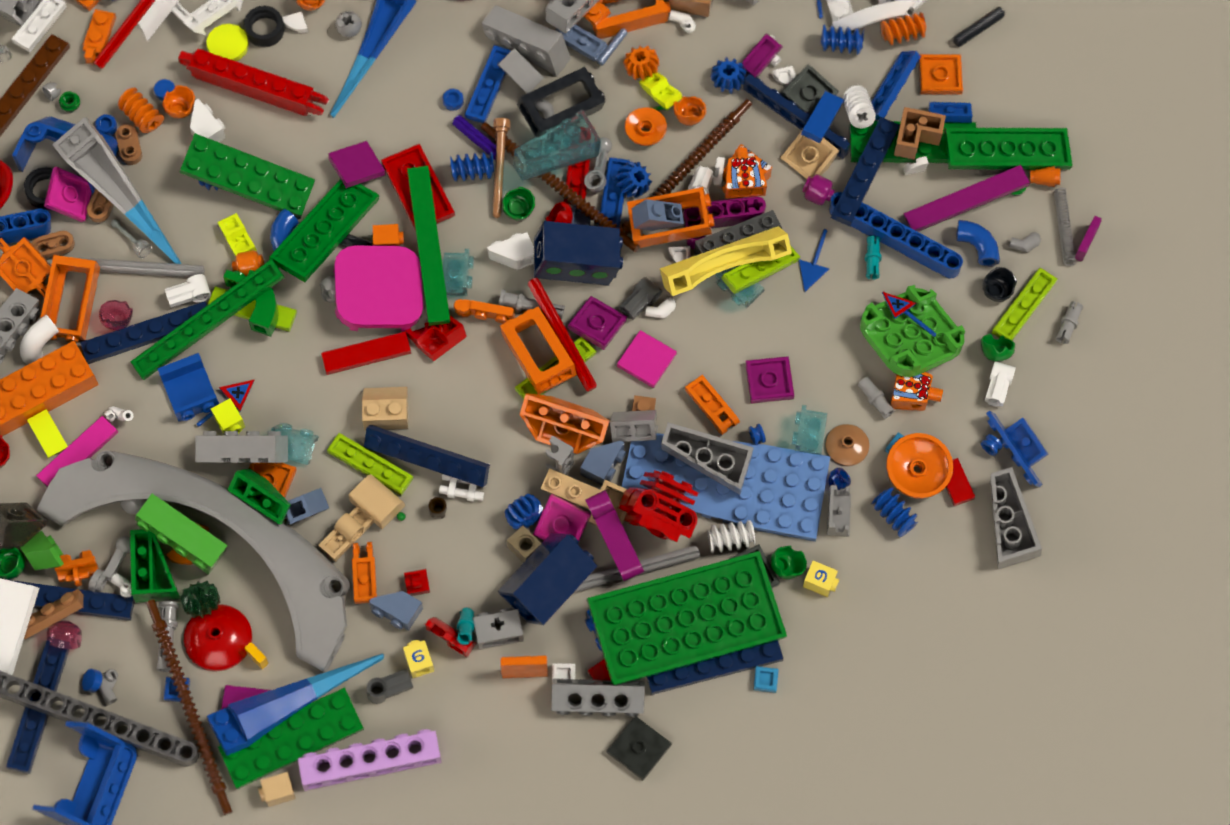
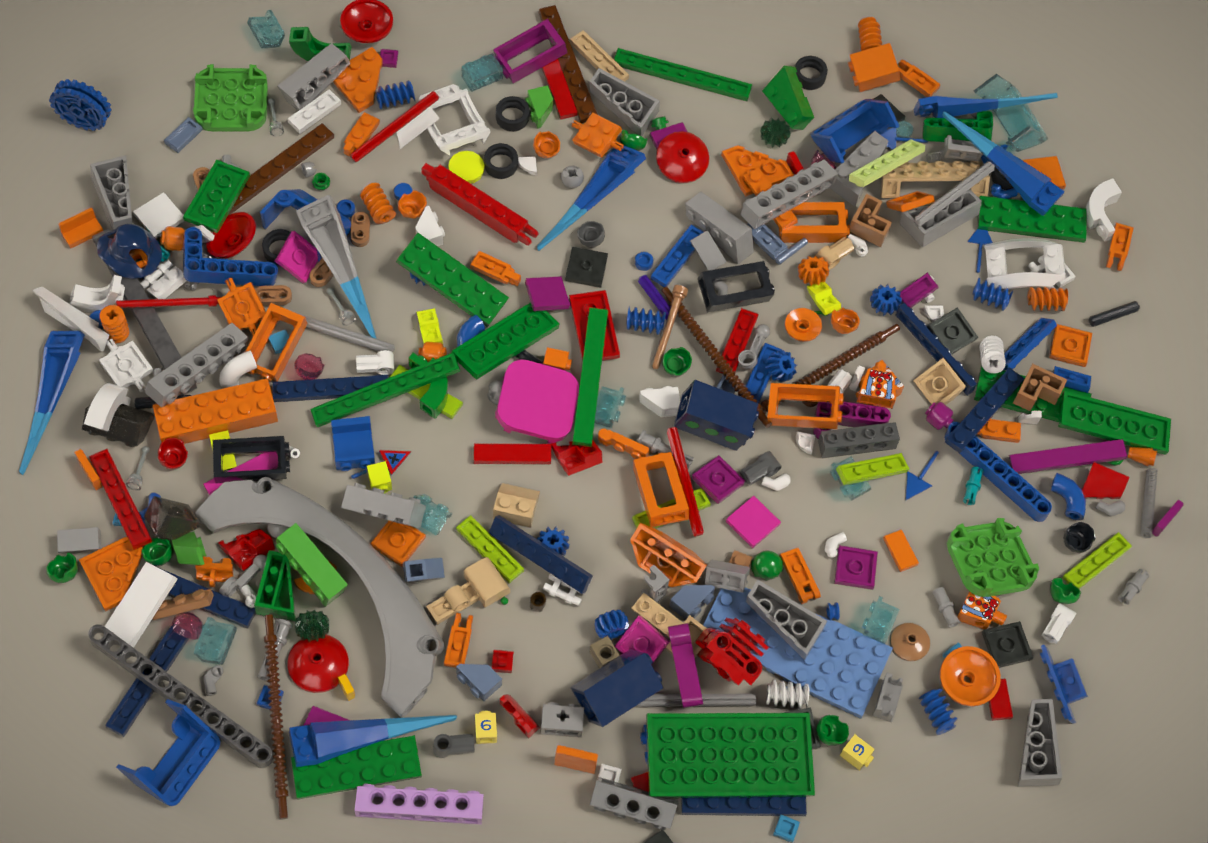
camera: 10 degrees right, 5 degrees down
(73, 294) = (278, 341): none -> dark azure tile
(76, 420) = (250, 445): none -> black piece
(92, 680) = (199, 671): blue tile -> none
(99, 644) = (215, 641): none -> clear light blue bracket
(105, 532) = (247, 547): none -> red slope
(259, 494) = (387, 548): green slope -> none
(276, 789) = (331, 808): tan brick -> none
(291, 151) = (495, 269): none -> orange hinge
(387, 84) = (591, 234): none -> dark grey hair
(391, 122) = (586, 267): none -> pearl dark grey plate
(445, 436) = (554, 536): none -> blue gear
(465, 626) = (534, 710): teal pin -> none
(559, 147) = (722, 323): clear light blue wedge -> none
(561, 213) = (711, 377): red hair -> none
(657, 215) = (793, 400): sand blue slope -> none
(661, 35) = (836, 252): none -> tan piece
(673, 402) = (767, 565): none -> green hair
(737, 360) = (833, 542): none -> white arm
(759, 247) = (810, 456): light yellow arch -> none
(813, 348) = (901, 550): none -> orange tile
(822, 117) = (958, 354): blue tile -> none
(840, 478) = (897, 668): clear blue tile -> none
(889, 188) = (1001, 431): none -> orange hinge
(899, 306) = (987, 533): piece -> none
(951, 420) = (1007, 644): none -> pearl dark grey plate
(991, 445) = (1038, 675): blue bush -> none
(1012, 217) = (1104, 483): none -> red slope

